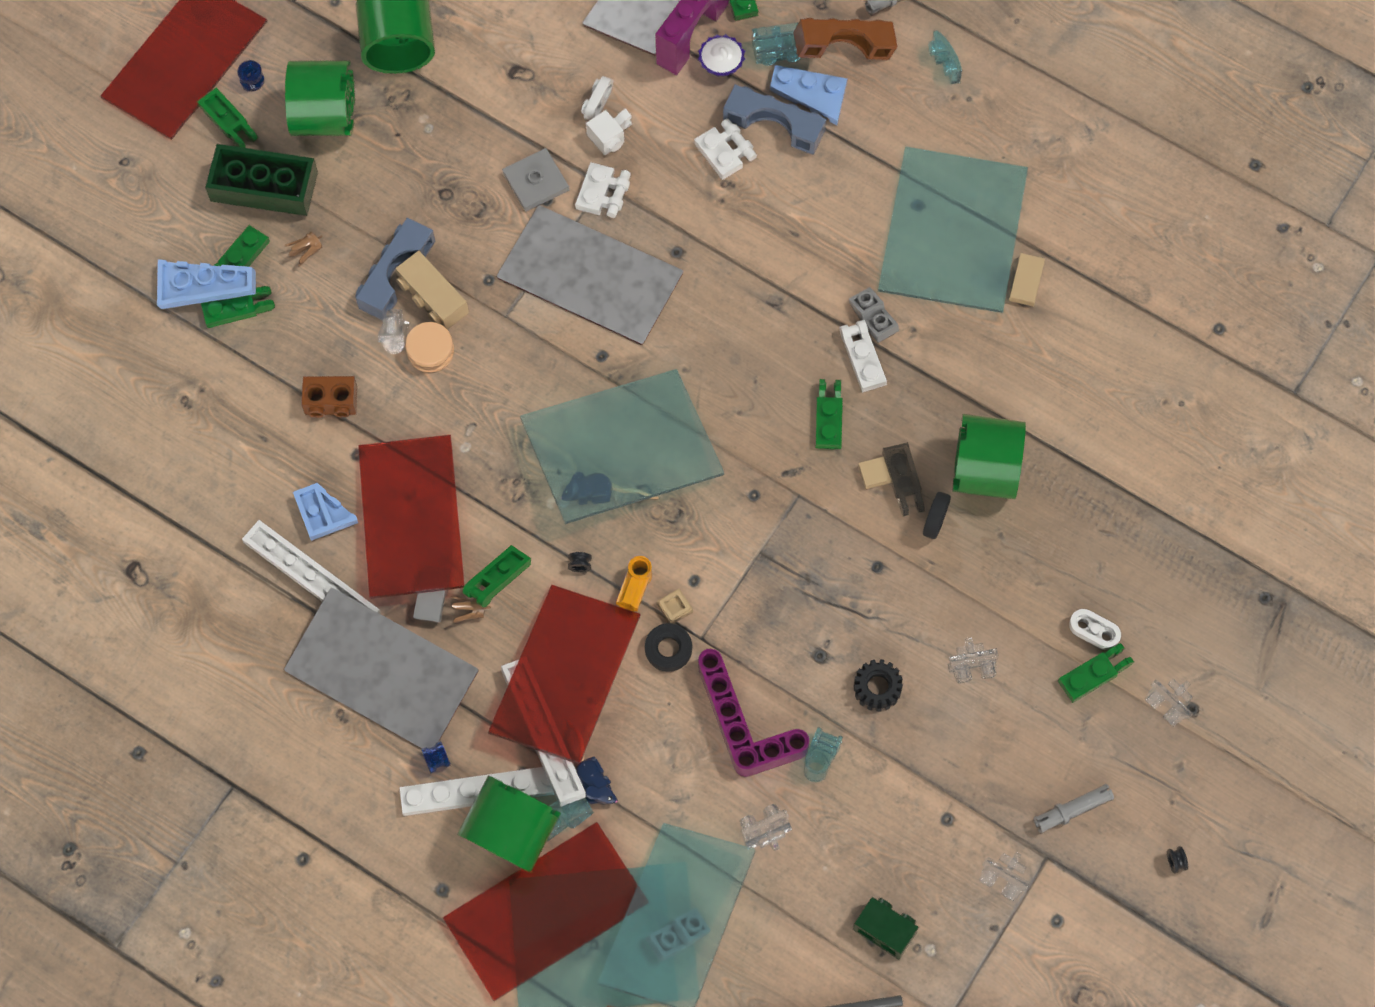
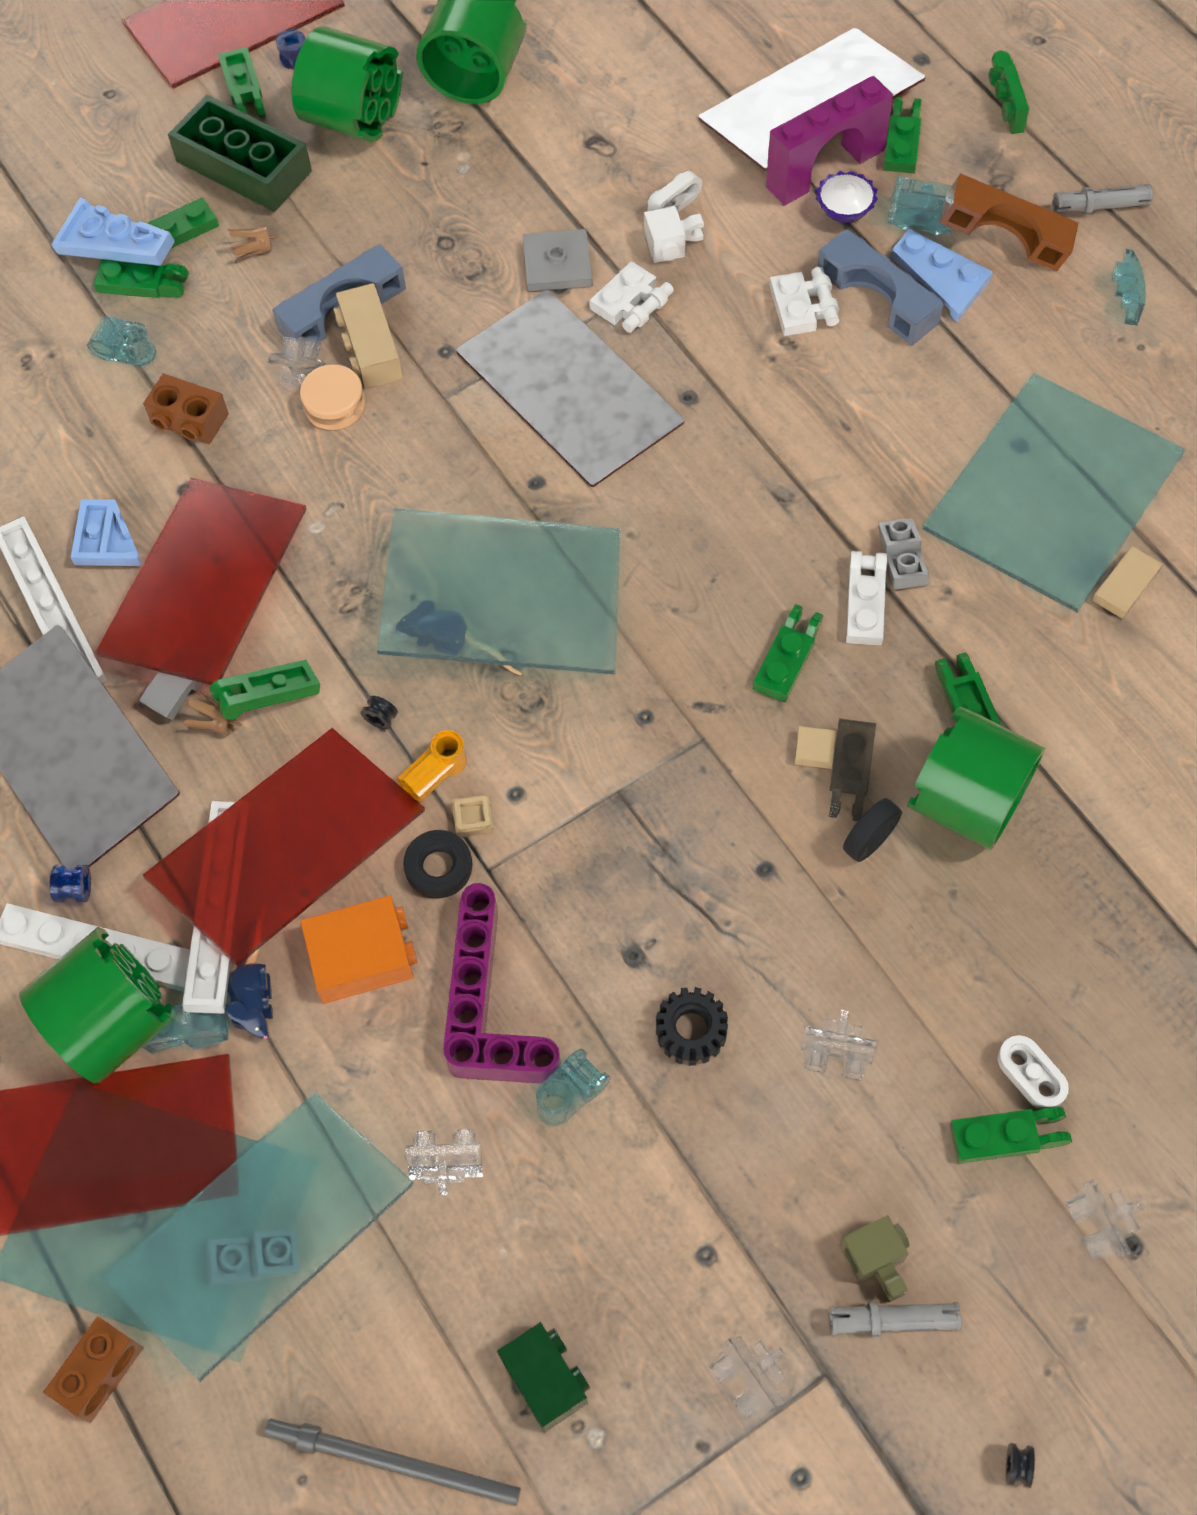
camera: 25 degrees right, 5 degrees down
(251, 361) = (122, 342): none -> clear light blue piece
(646, 722) = (358, 949): none -> orange brick
(956, 398) = (965, 690): none -> green hinge
(1048, 774) = (876, 1252): none -> olive brick

